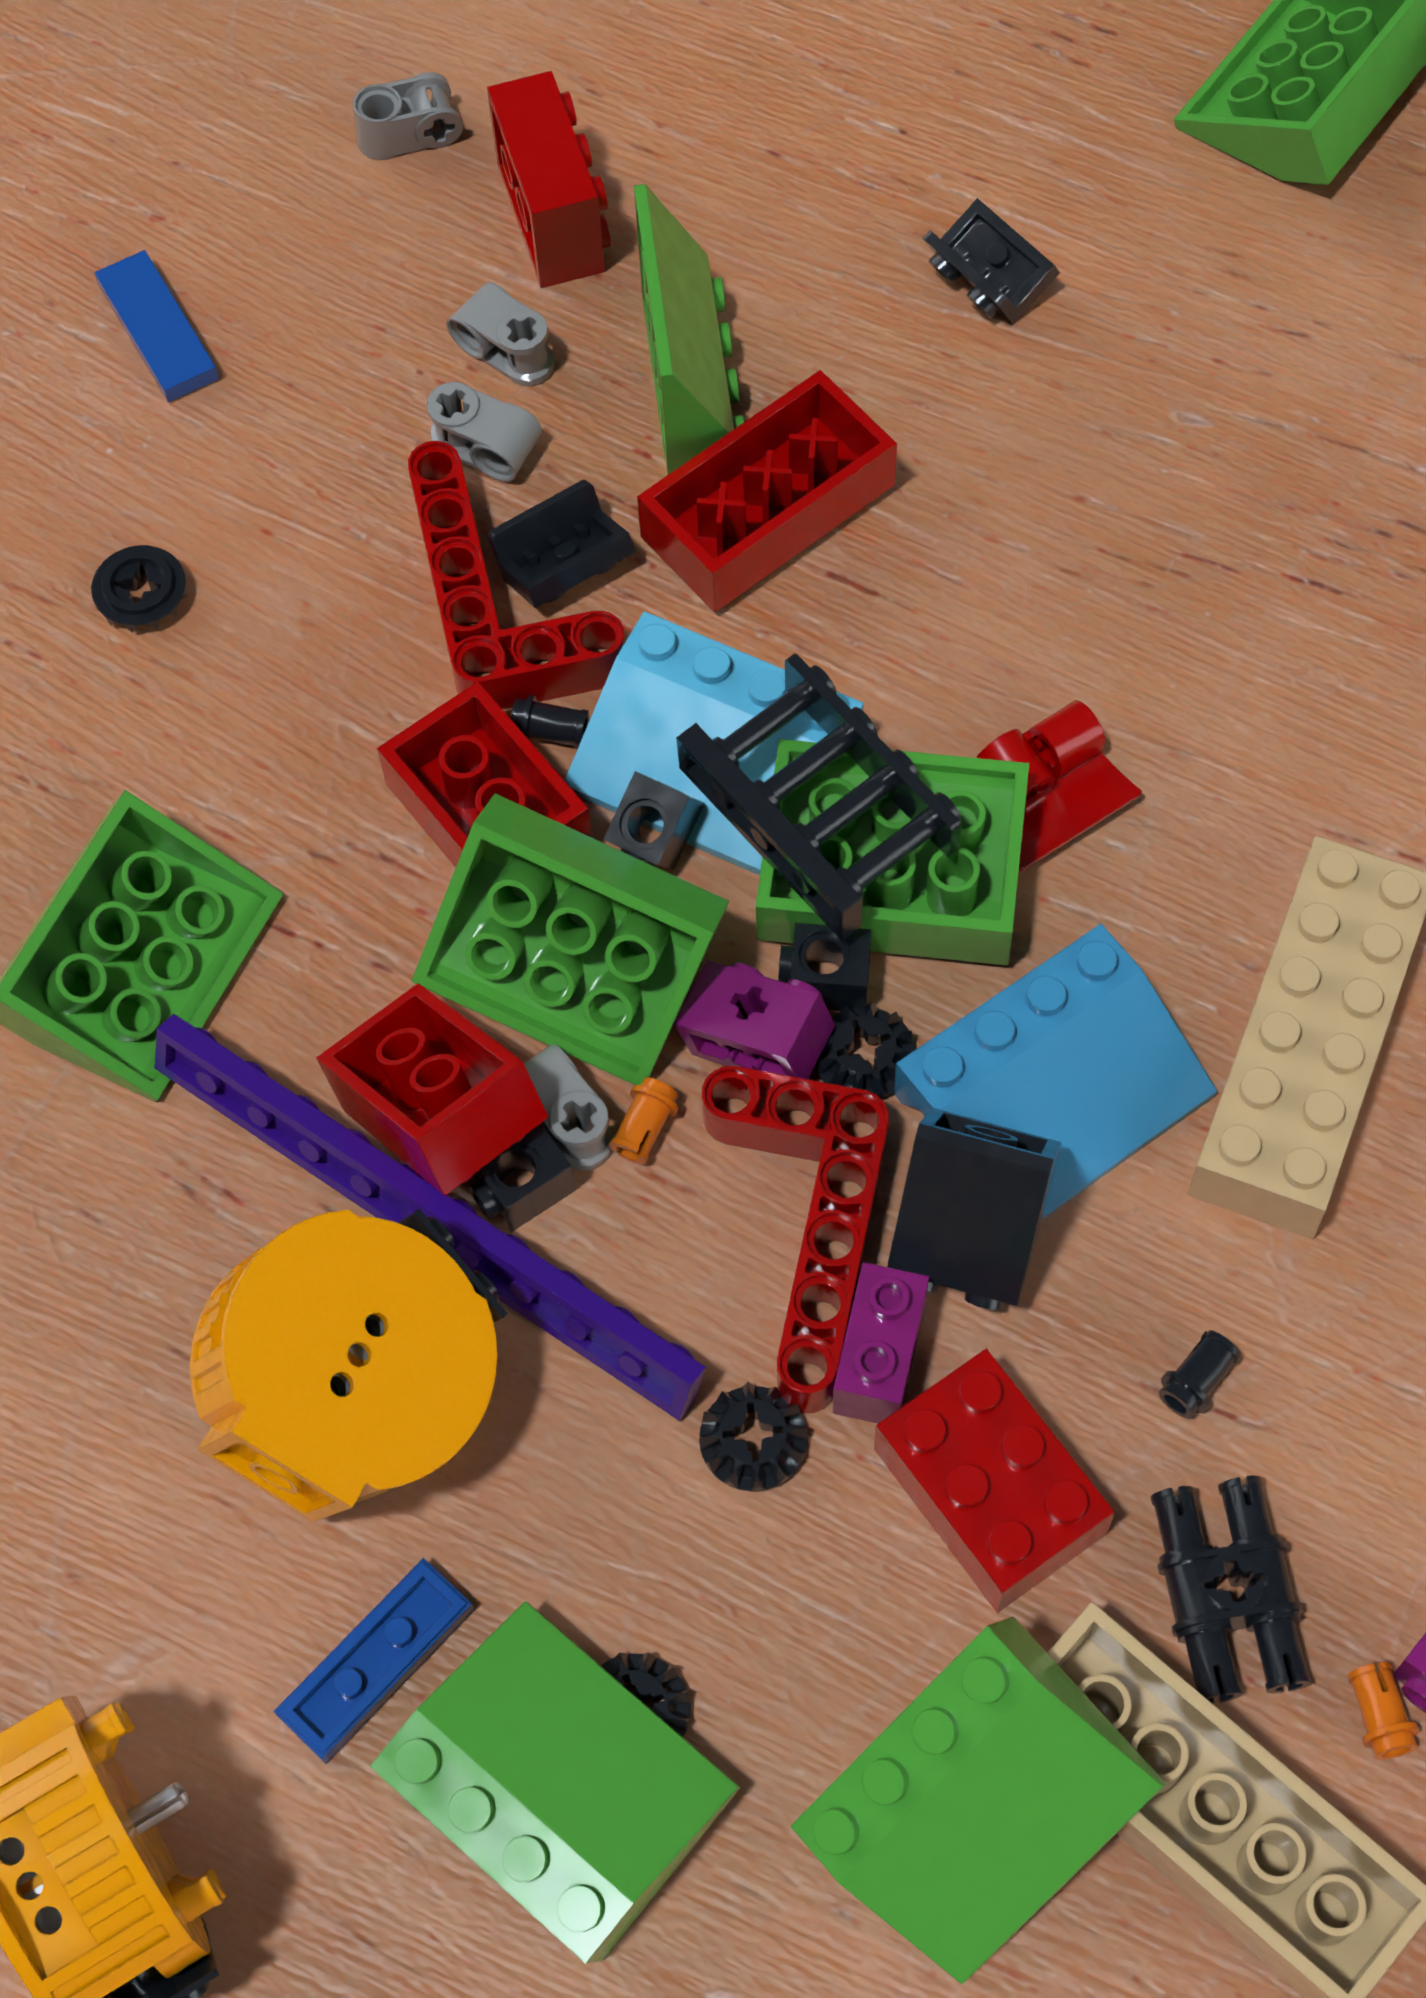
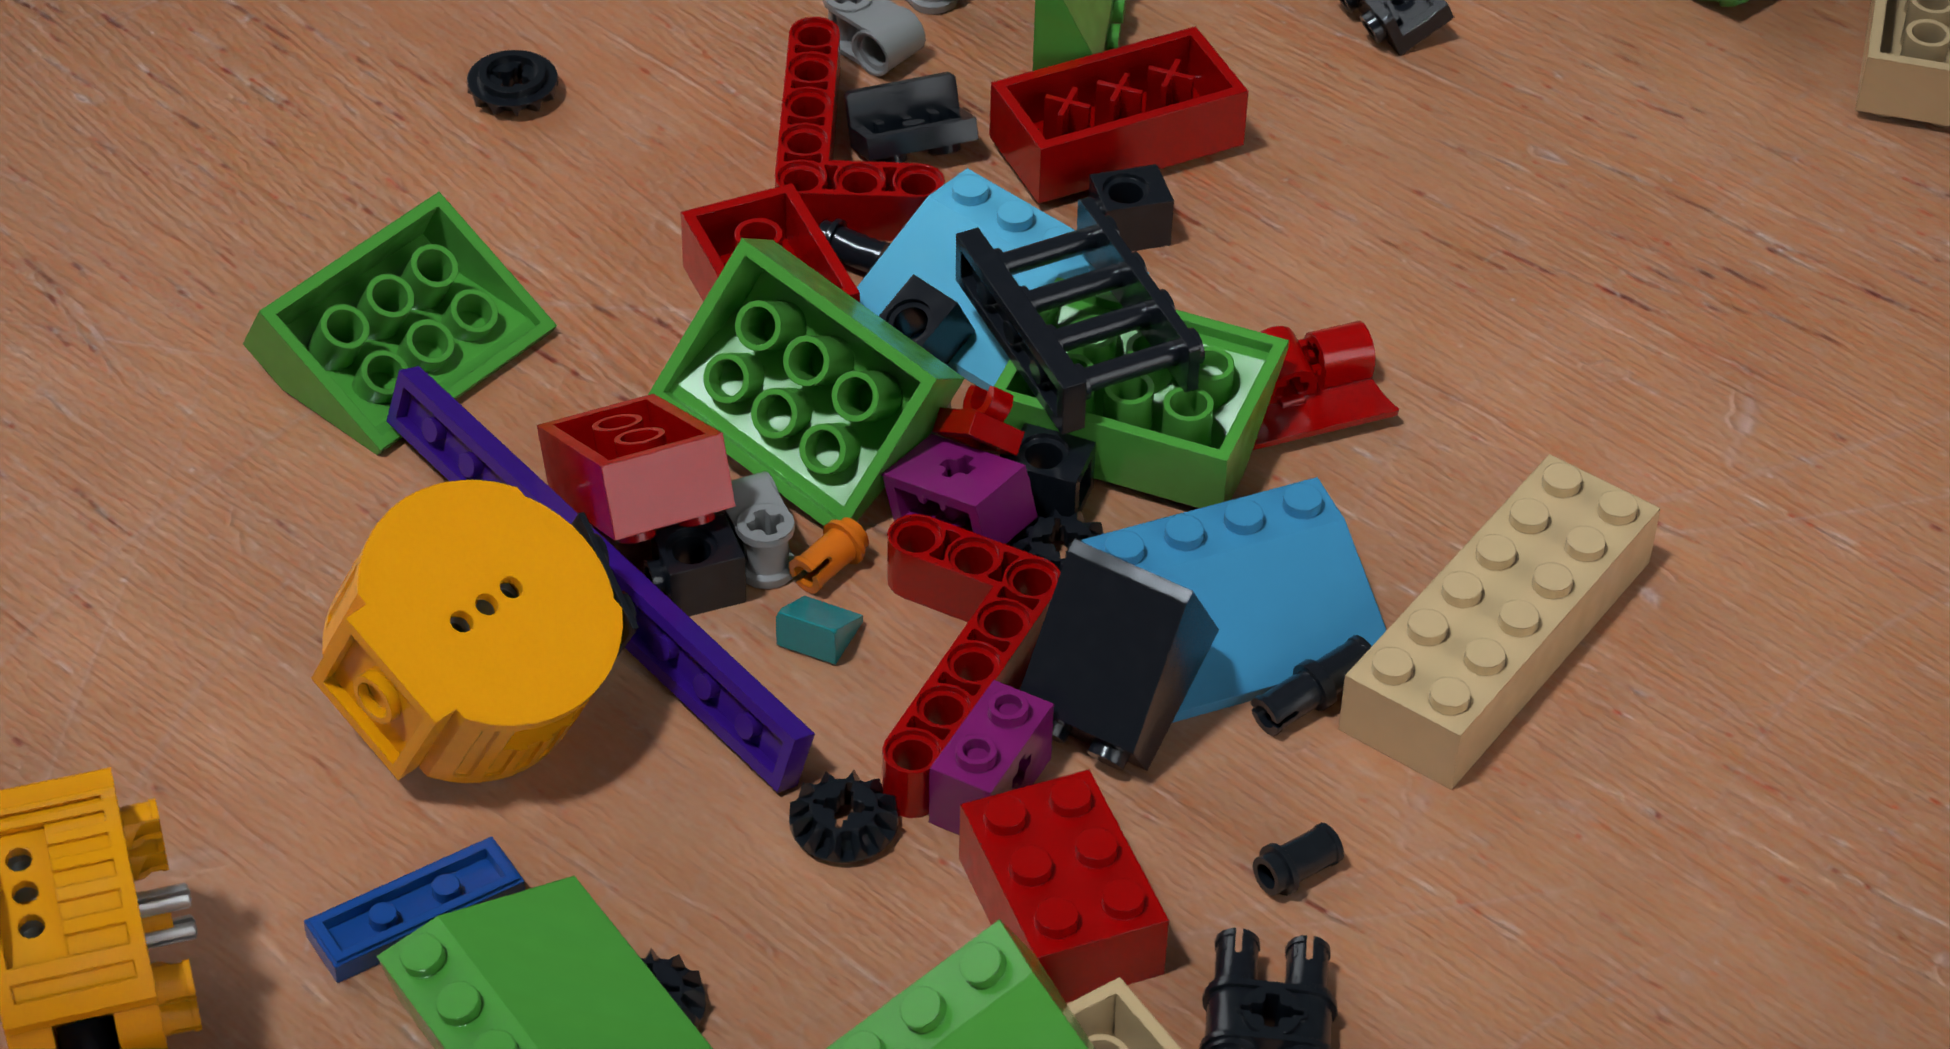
camera: 10 degrees right, 20 degrees down
(658, 1209) = (816, 628): none -> teal slope
(758, 944) = (981, 422): none -> red tile
(813, 585) = (1138, 204): none -> black brick
(1156, 1158) = (1310, 687): none -> black pin

